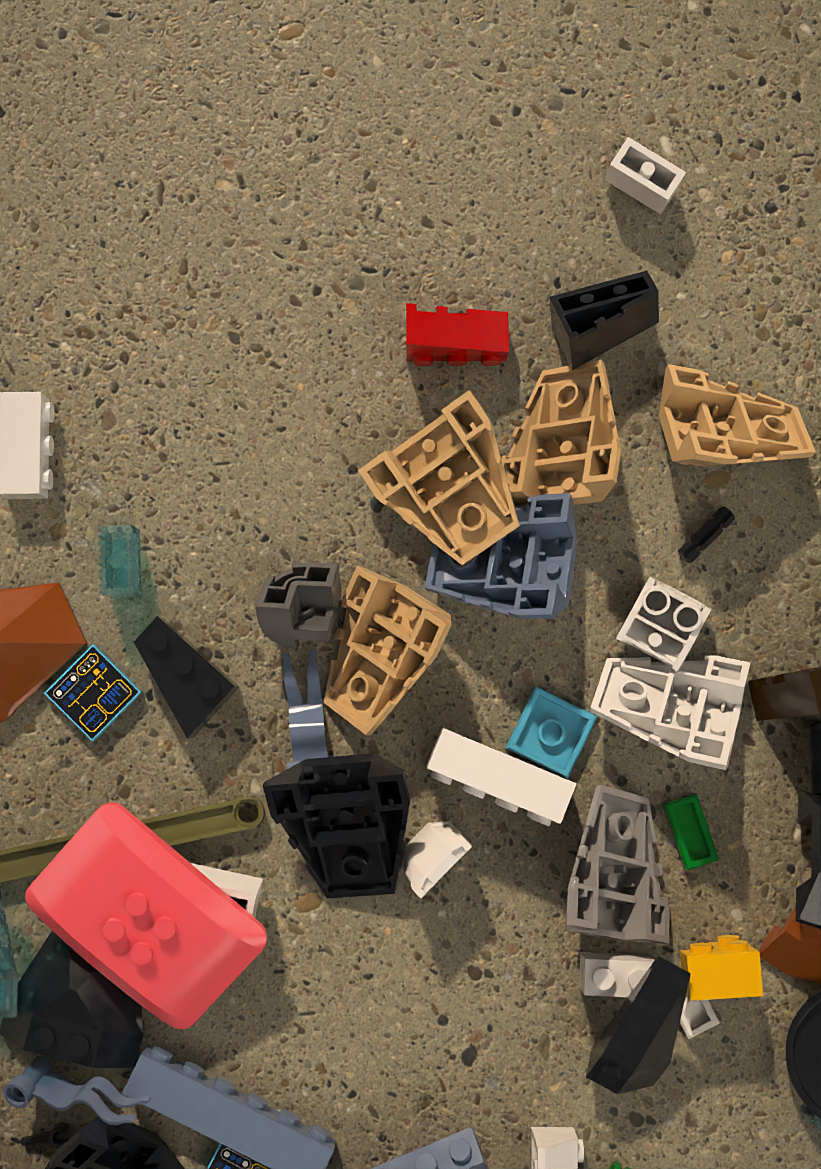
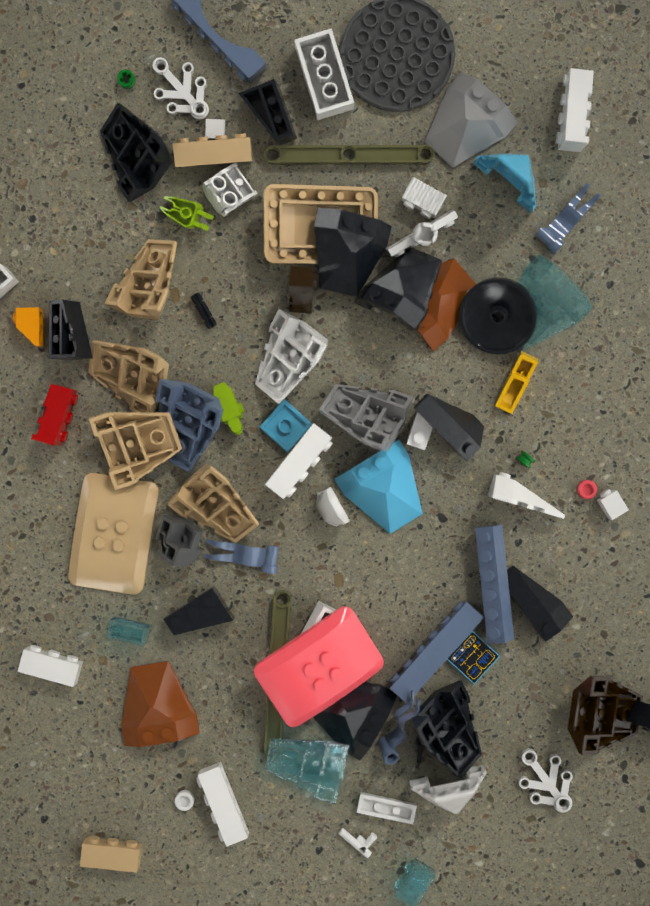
camera: 75 degrees left, 5 degrees up
(93, 692) = (195, 664): black tile -> none
(278, 489) = (113, 535): none -> tan wedge
(344, 820) = (300, 549): black wedge -> none
(492, 937) = (384, 488): none -> medium azure wedge
(553, 633) = (231, 408): none -> lime hinge
(597, 252) = (30, 323): none -> light orange slope
(664, 629) = (244, 349): white slope -> none
(690, 831) = (359, 367): green tile -> none
(697, 1017) = (454, 393): white tile -> none
(722, 969) = (433, 375): yellow brick -> none
(749, 1123) = (516, 382): none -> yellow slope

